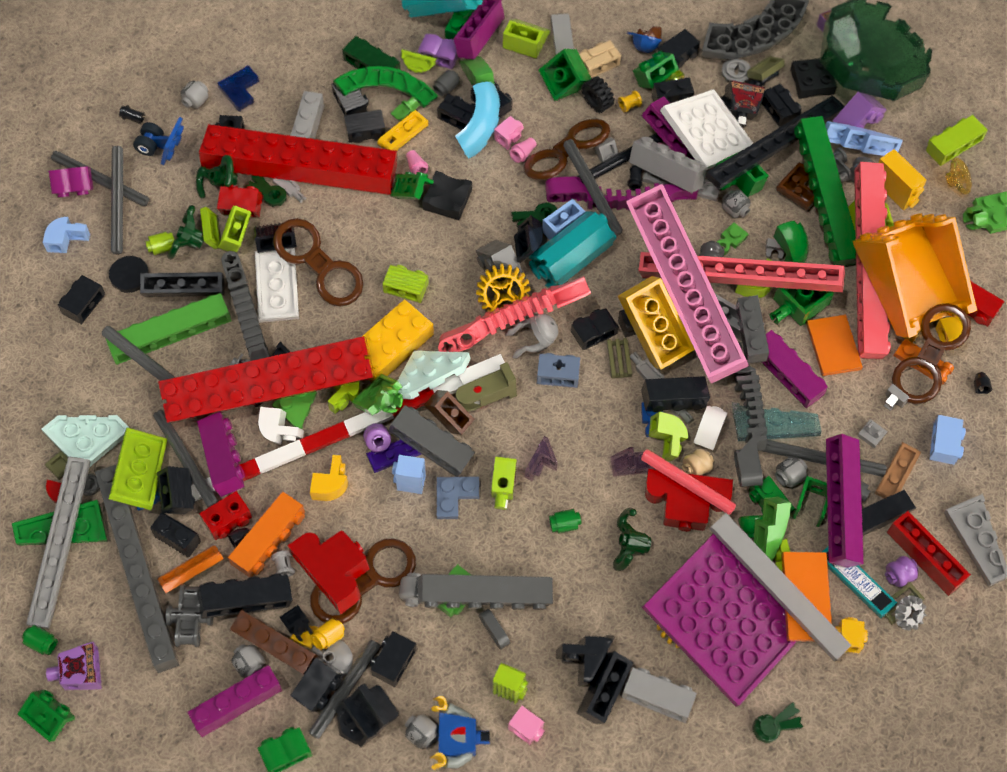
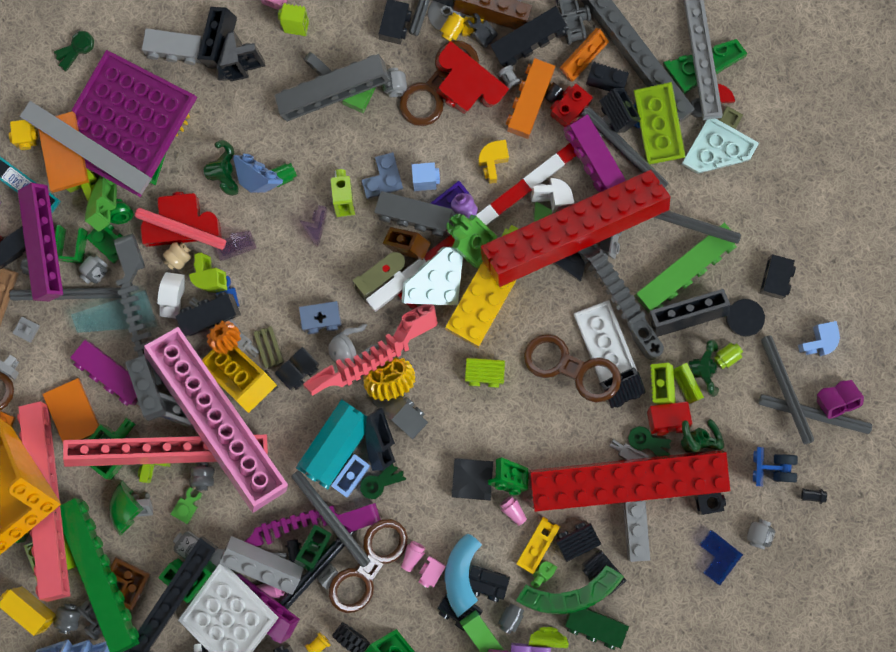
camera: 165 degrees right, 20 degrees up
(594, 521) = (254, 175): none -> medium blue slope
(615, 169) = (313, 548): none -> dark green brick
(655, 360) = (223, 337): none -> orange gear

